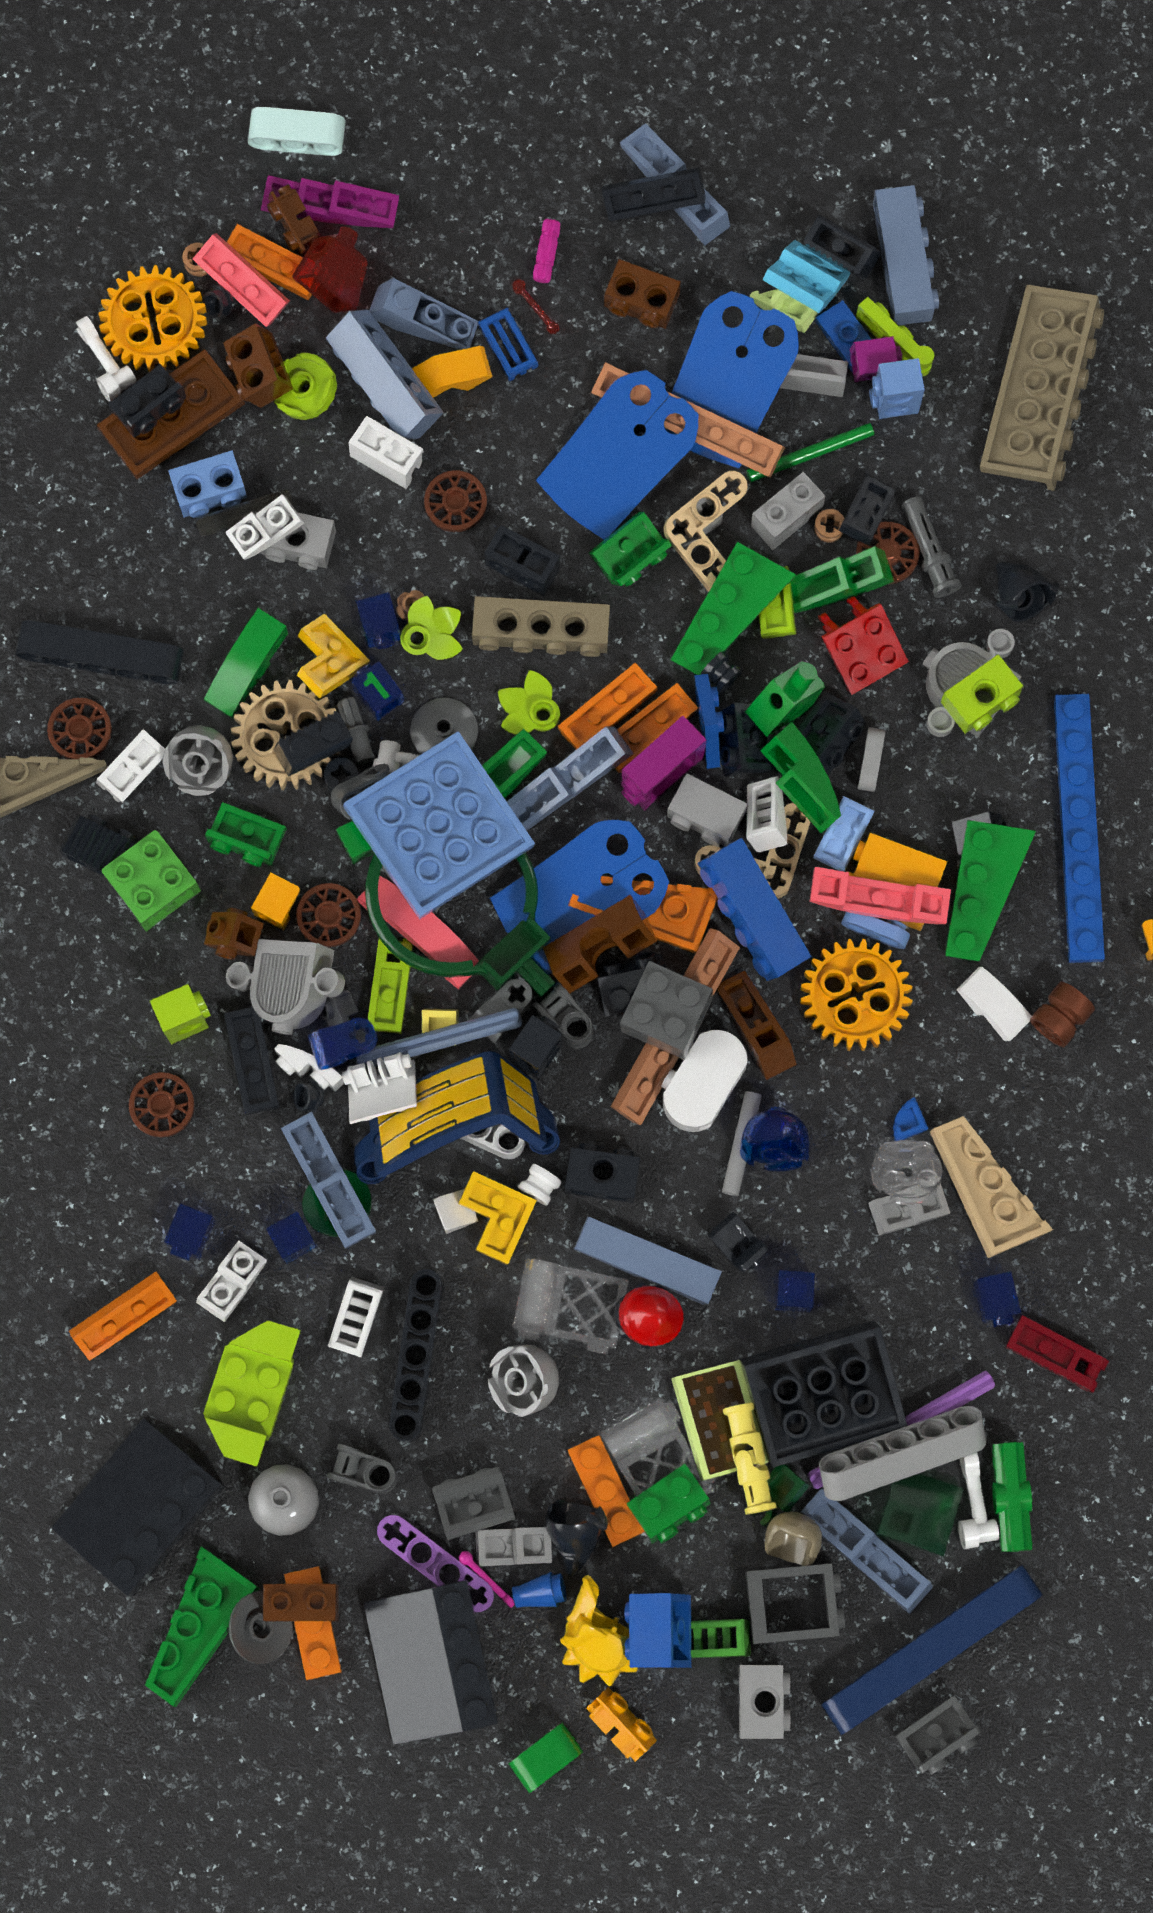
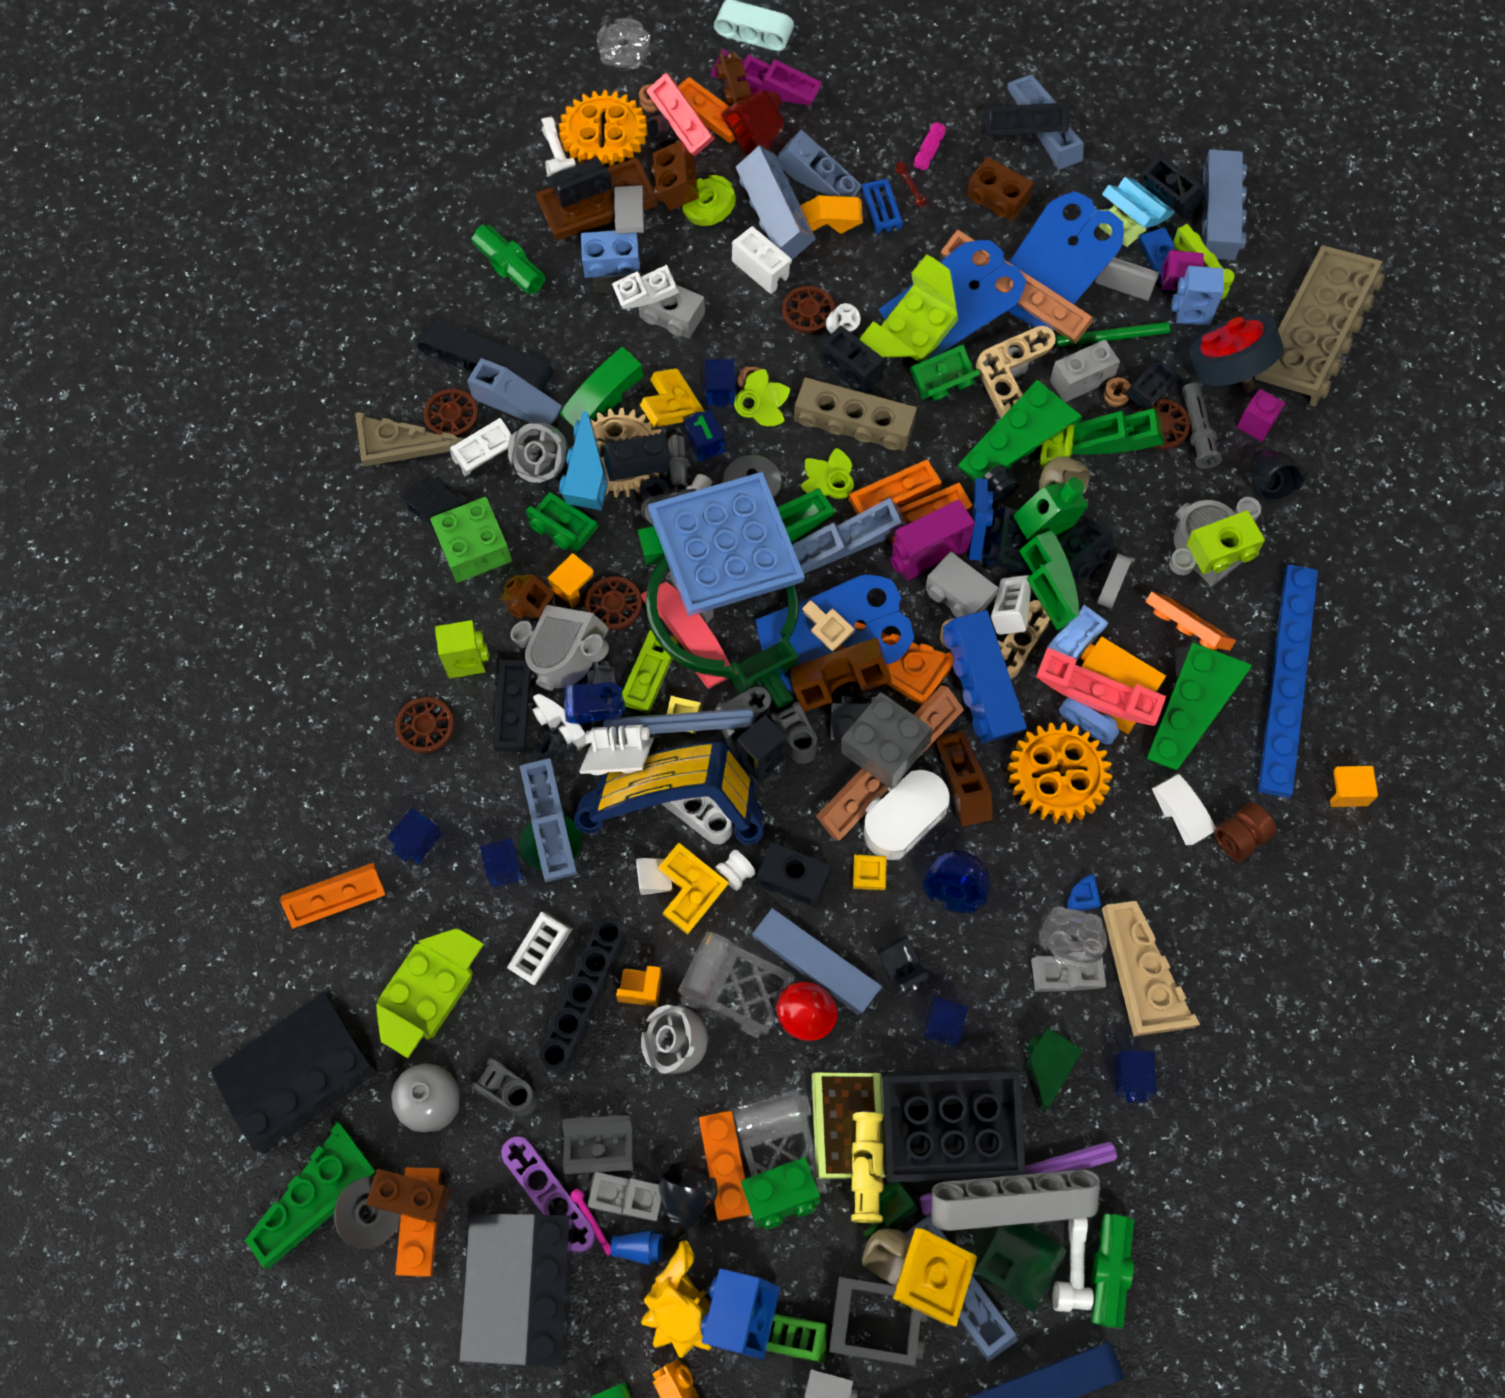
camera: 15 degrees right, 10 degrees down
(89, 518) = (508, 259): none -> green piece
(130, 179) = (623, 55): none -> clear plate
(147, 693) = (511, 394): none -> sand blue slope
(216, 426) = (629, 209): none -> light grey slope
(231, 1281) = (439, 890): white slope -> none
(261, 775) = (586, 476): none -> dark azure slope
(472, 1331) = (640, 986): none -> light orange panel
(507, 508) = (849, 318): none -> white wheel
(576, 893) = (829, 627): none -> tan plate
(584, 490) = (920, 317): none -> lime piece
(680, 1151) = (869, 872): none -> yellow tile
(736, 1164) = (918, 894): light grey piece -> none
(789, 648) = (1061, 470): none -> dark tan hair
(840, 1548) = (935, 1277): none -> yellow plate
(863, 647) = (1127, 489): red plate -> none
(909, 1309) = (1049, 1065): none -> dark green slope
(952, 452) = (1236, 351): none -> black wheel
(961, 793) = (1189, 622): none -> orange plate
(994, 520) = (1260, 415): none -> magenta brick
(1056, 1353) = (1182, 1142): dark red plate -> none

